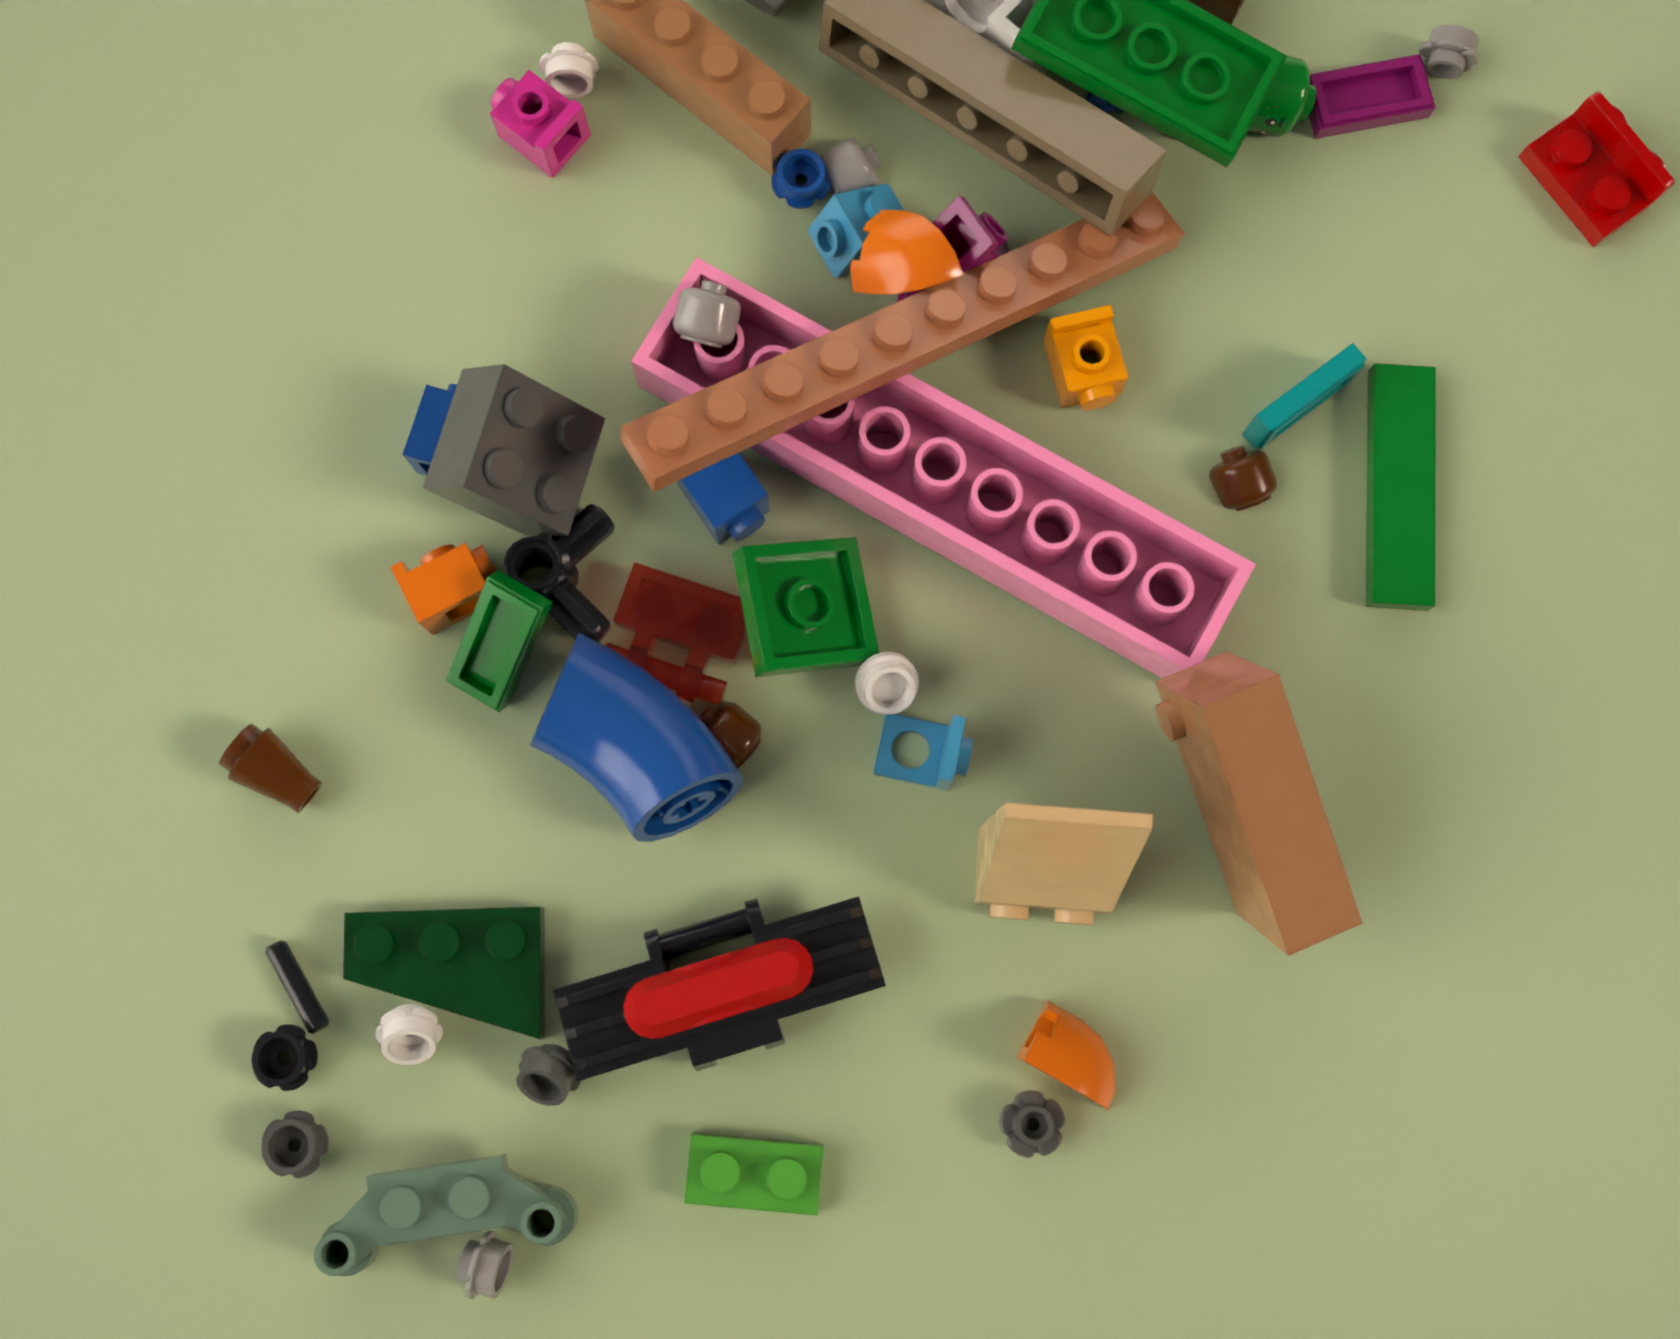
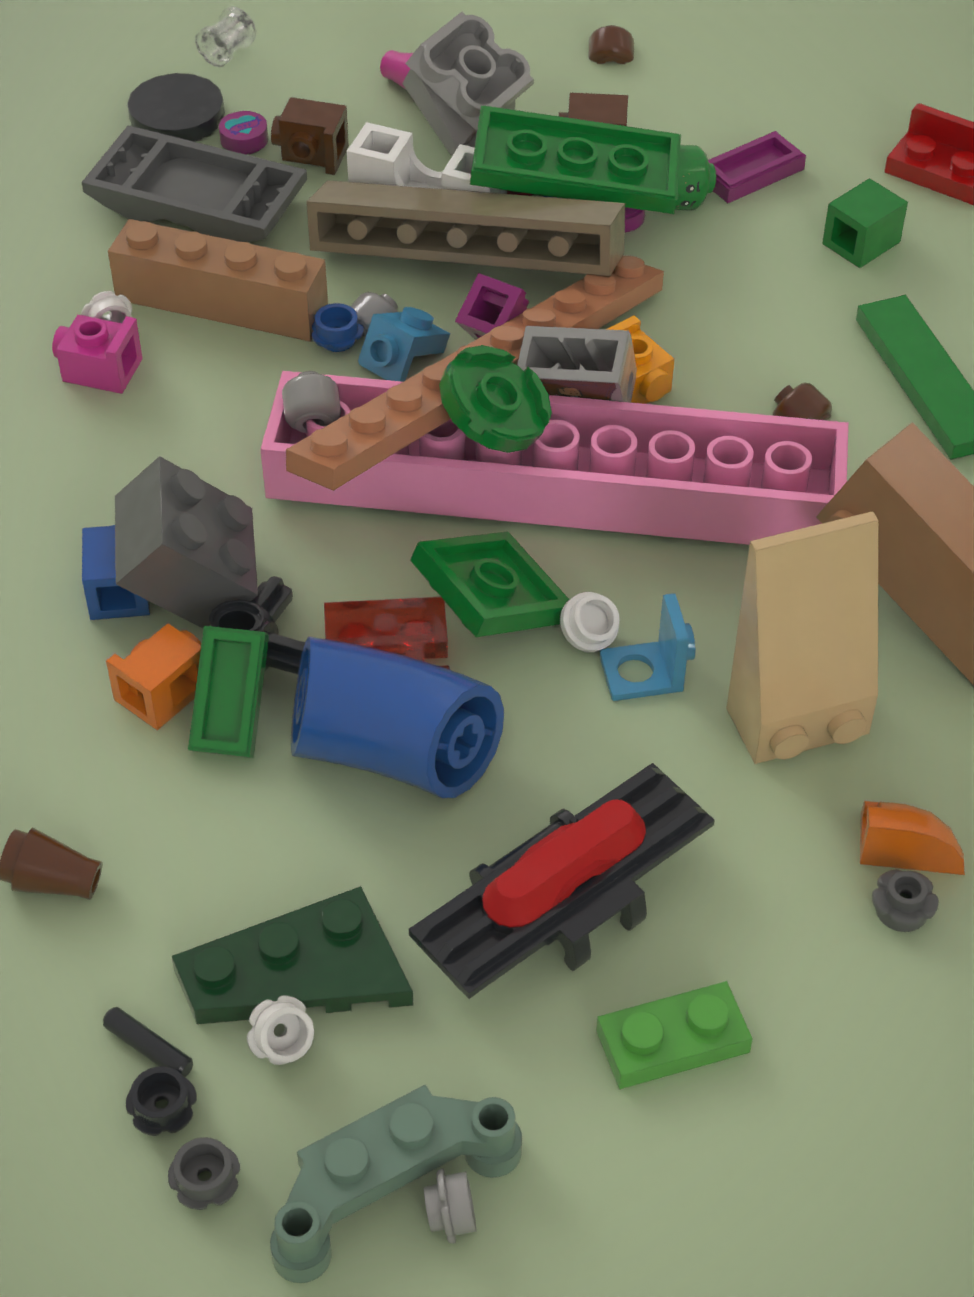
camera: 20 degrees left, 30 degrees down
(546, 1074) = (429, 1031): dark grey plate -> none
(727, 498) = (375, 534): blue brick -> none
(885, 408) = (494, 399): none -> green tile
(902, 255) = (452, 323): orange brick -> none
(1008, 387) = (581, 361): none -> light grey torso
(1304, 397) = (818, 337): teal tile -> none
(1446, 243) = (864, 222): none -> green brick
(1450, 51) = (796, 122): light grey plate -> none

